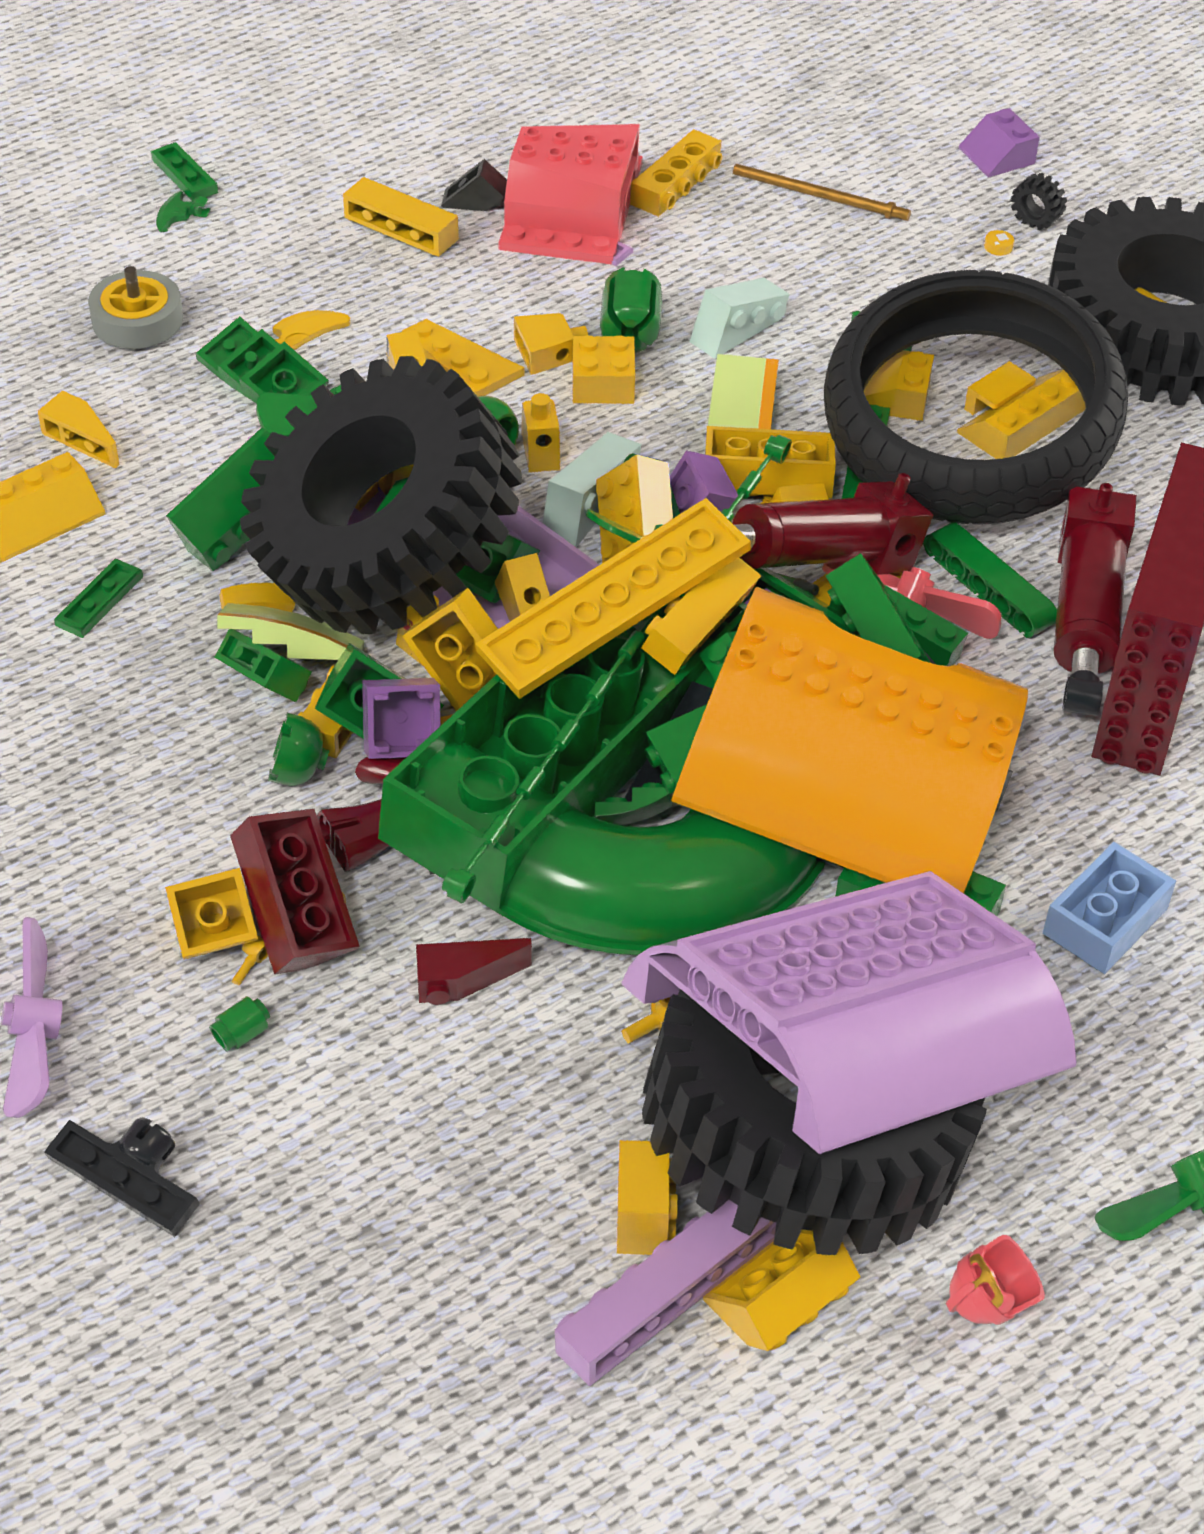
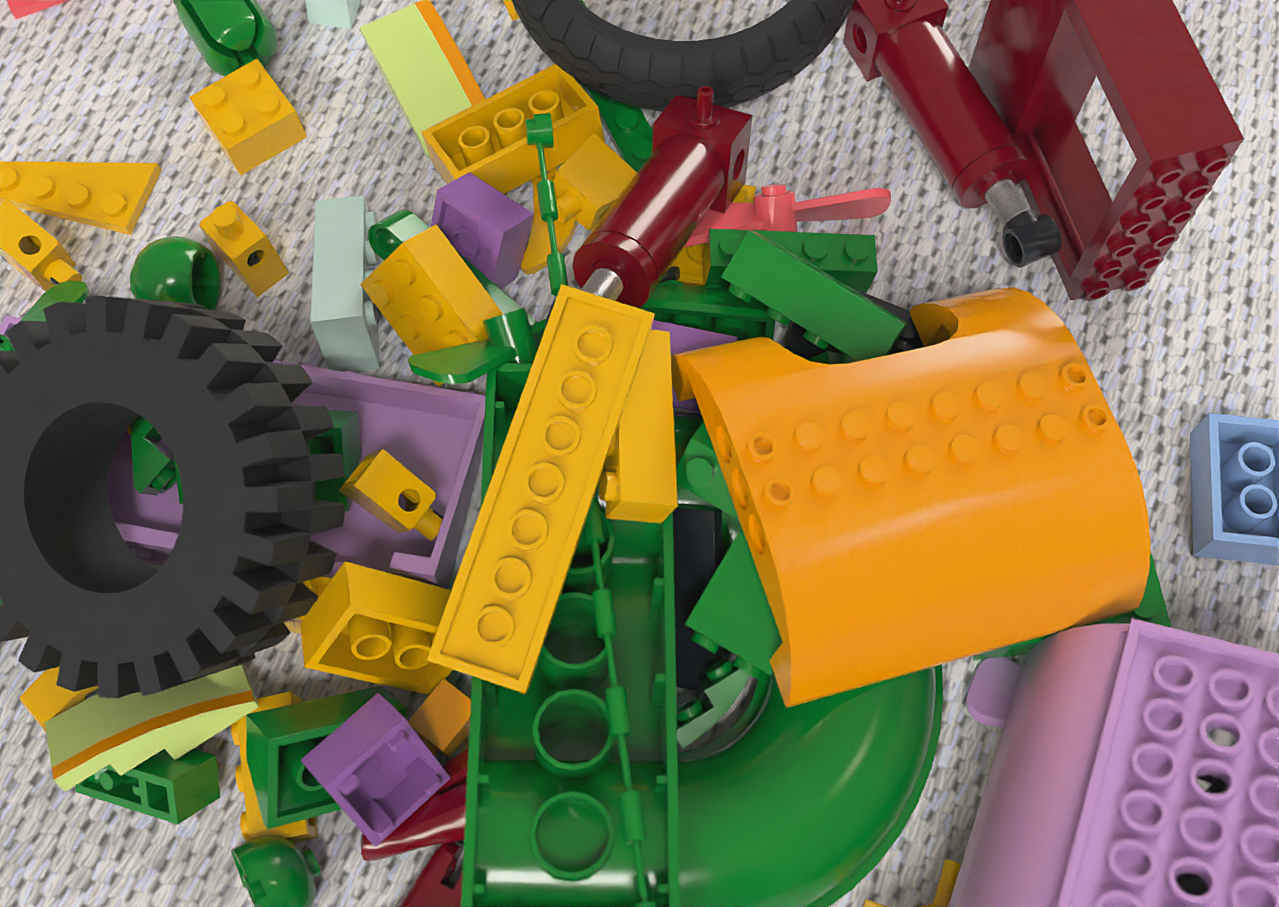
camera: 30 degrees left, 20 degrees up
(545, 340) = (157, 113): yellow torso -> none
(991, 578) = (835, 146): green beam -> none

